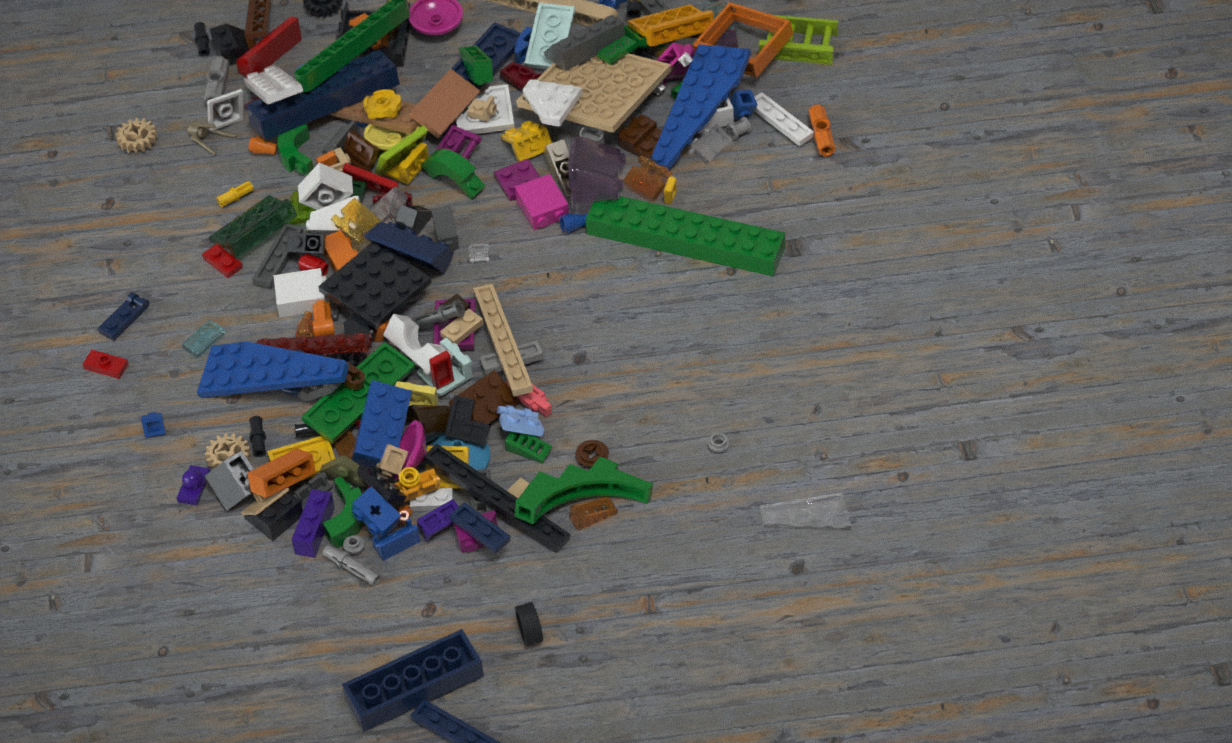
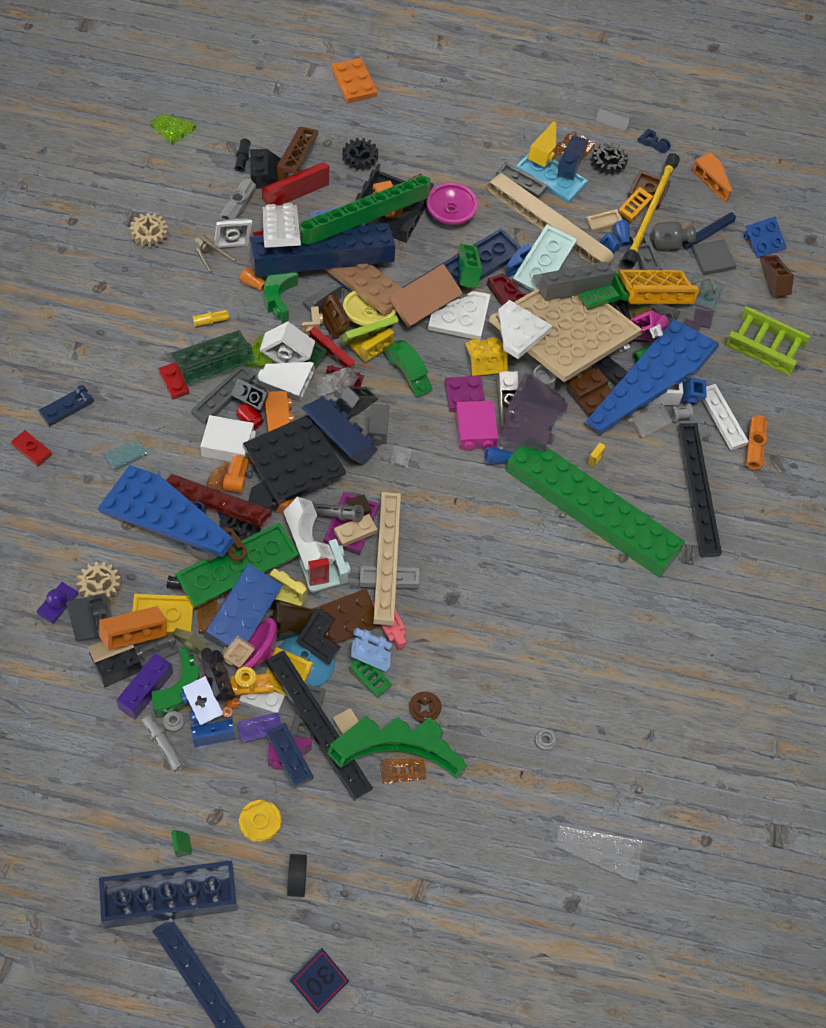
camera: 10 degrees right, 10 degrees up
(117, 37) = (172, 128): none -> clear neon green wing
(153, 424) = (46, 527): blue tile -> none
(257, 436) = (132, 573): black pin -> none
(327, 159) = (301, 315): orange tile -> none
(359, 216) = (307, 384): clear yellow plate -> none
(382, 104) = (362, 282): yellow plate -> none
(405, 640) = (181, 843): none -> green slope
(456, 138) = (421, 335): magenta plate -> none
(473, 598) = (260, 821): none -> yellow tile
(481, 109) = (457, 312): tan bracket -> none
(586, 701) = (319, 980): none -> dark blue piece
(644, 182) = (575, 437): clear orange plate -> none
(653, 112) = (610, 369): none -> black hinge
(777, 25) = (735, 308): orange window -> none
(782, 188) = (699, 490): none -> black plate

